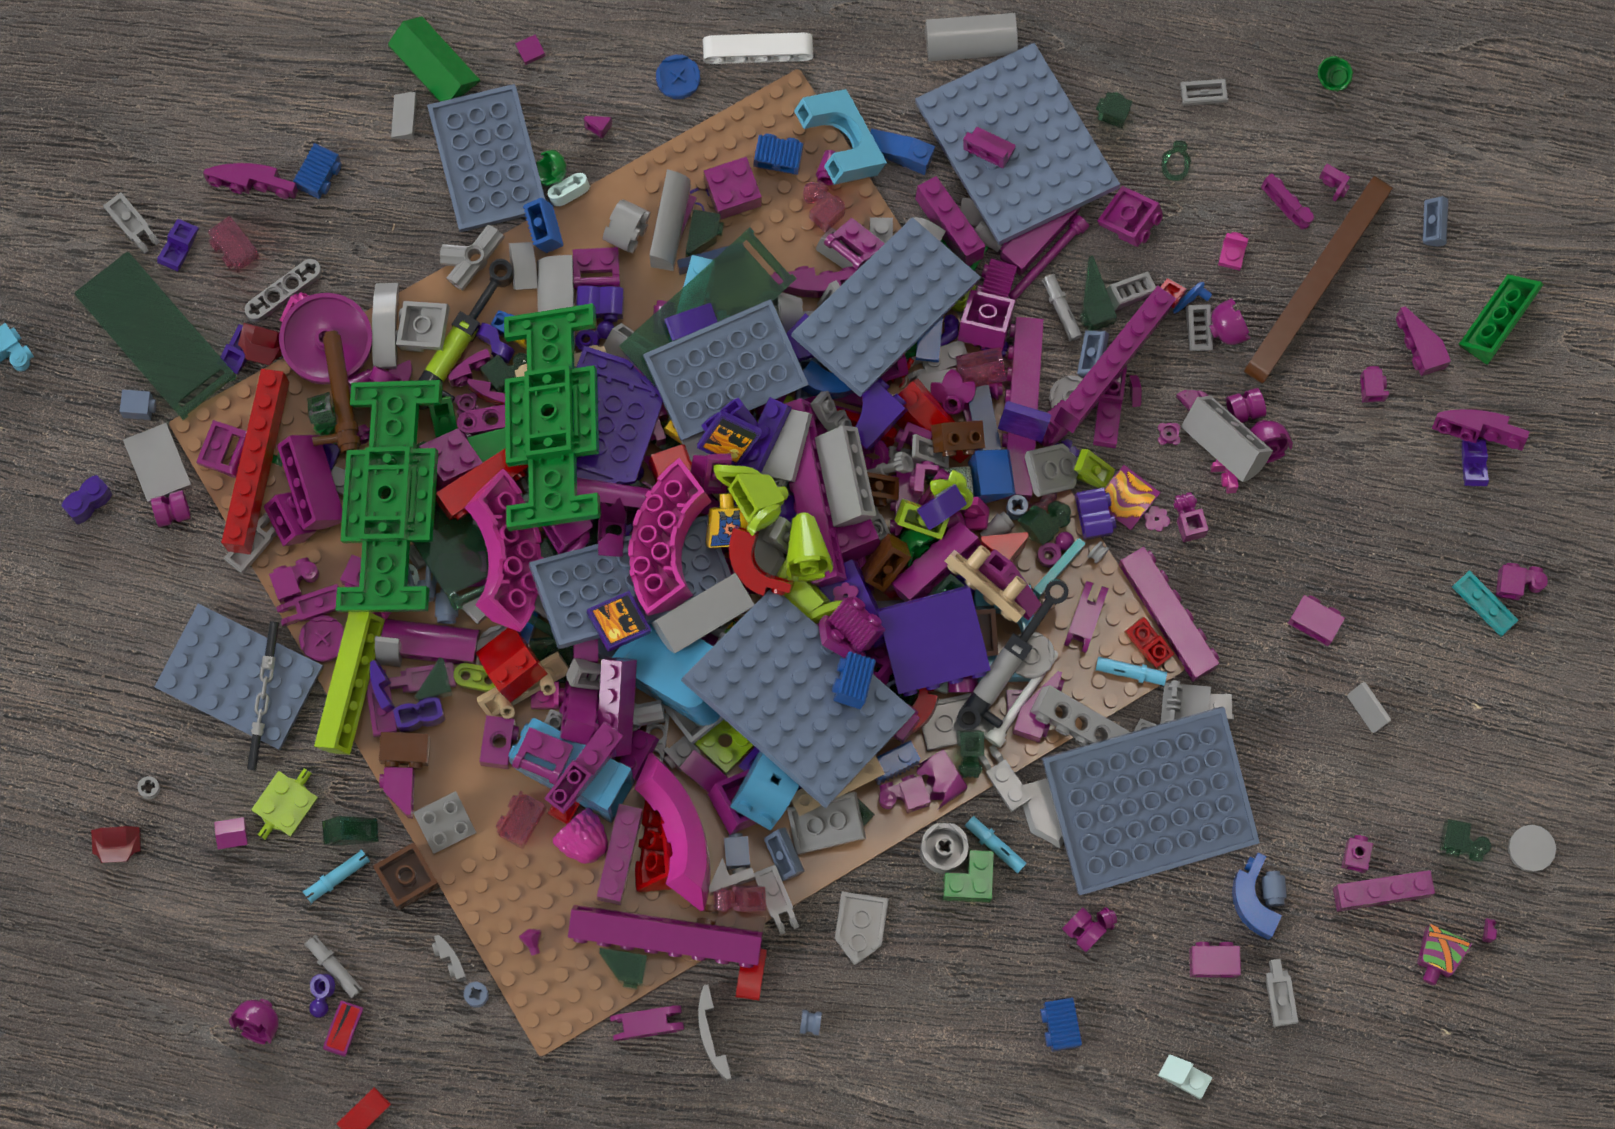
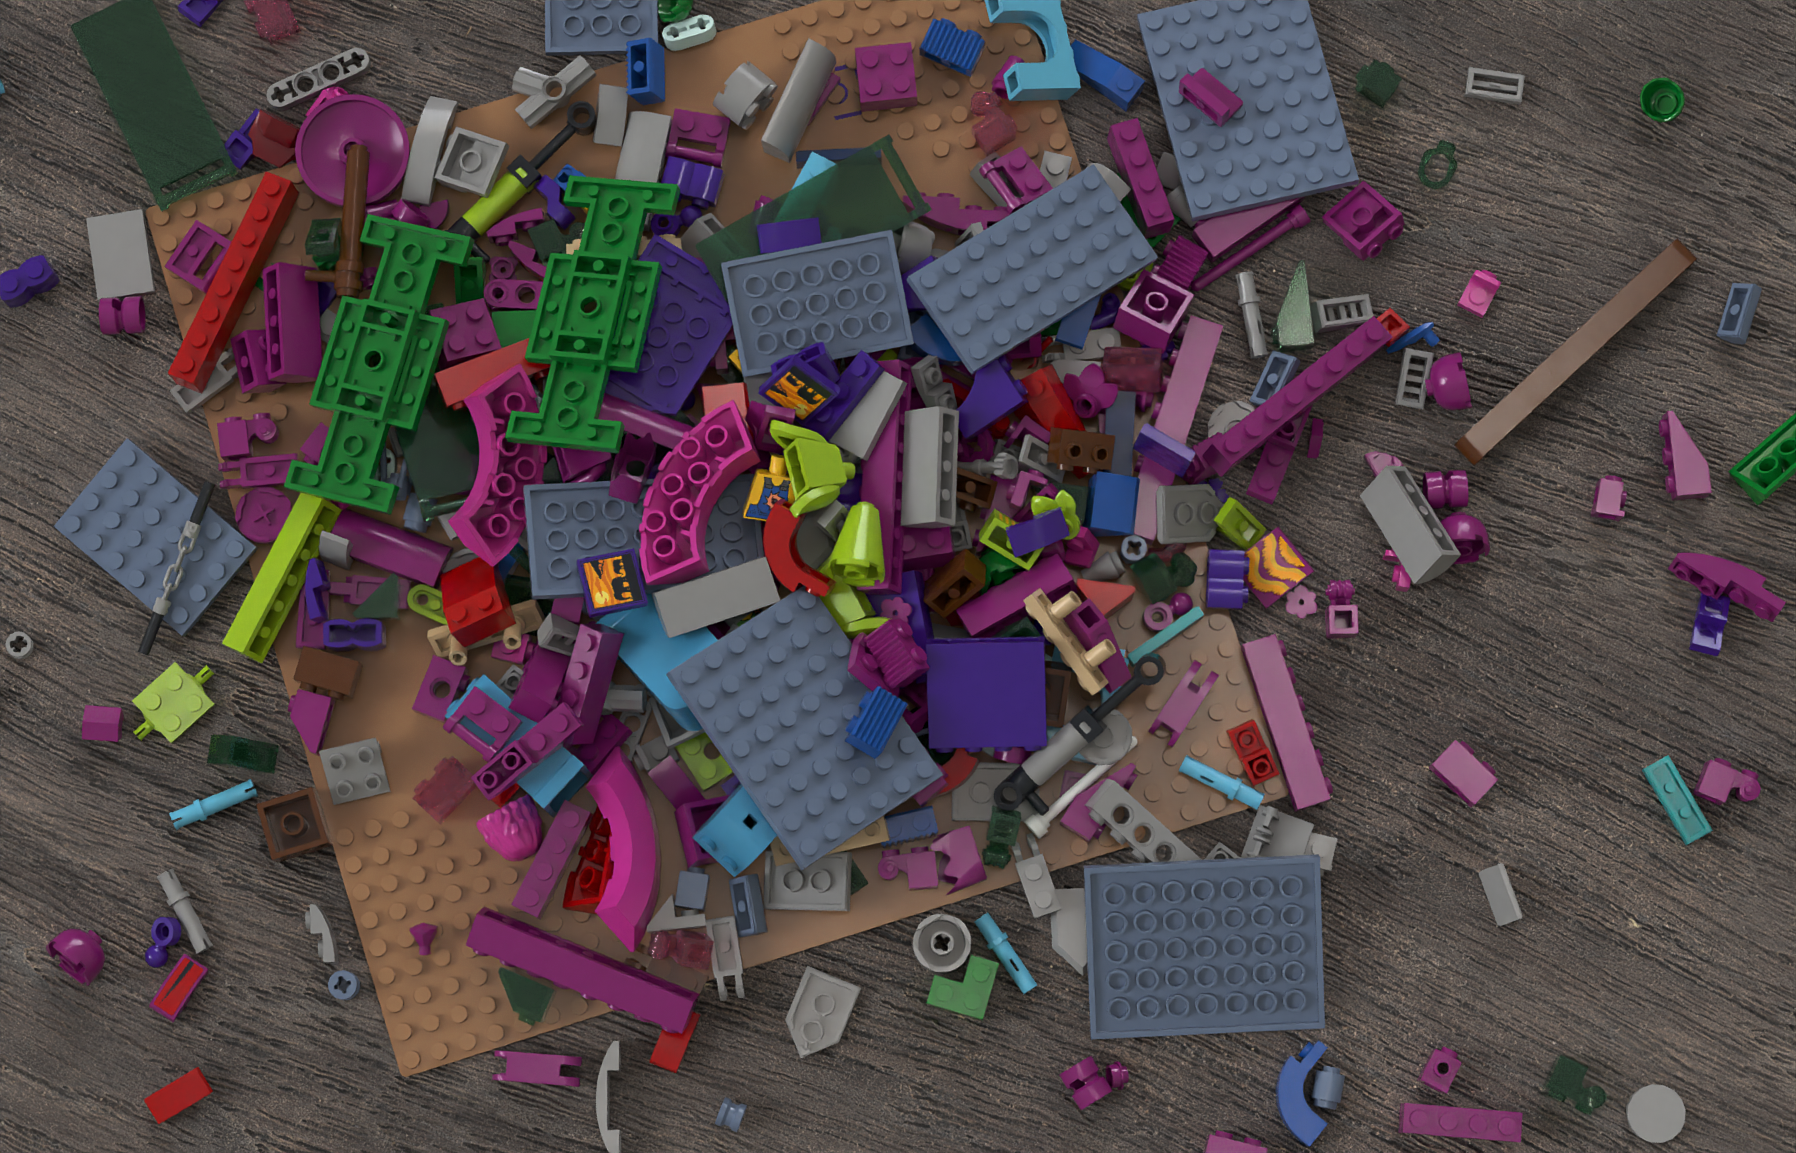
camera: 20 degrees right, 5 degrees up
(137, 404) = (112, 179): sand blue brick -> none
(703, 231) = (837, 123): clear green slope -> none
(1098, 552) = (1218, 628): light grey bush -> none
(1173, 428) = (1350, 497): magenta plate -> none
(1287, 202) = (1561, 246): magenta hinge -> none
(1334, 178) = (1628, 230): magenta bracket -> none

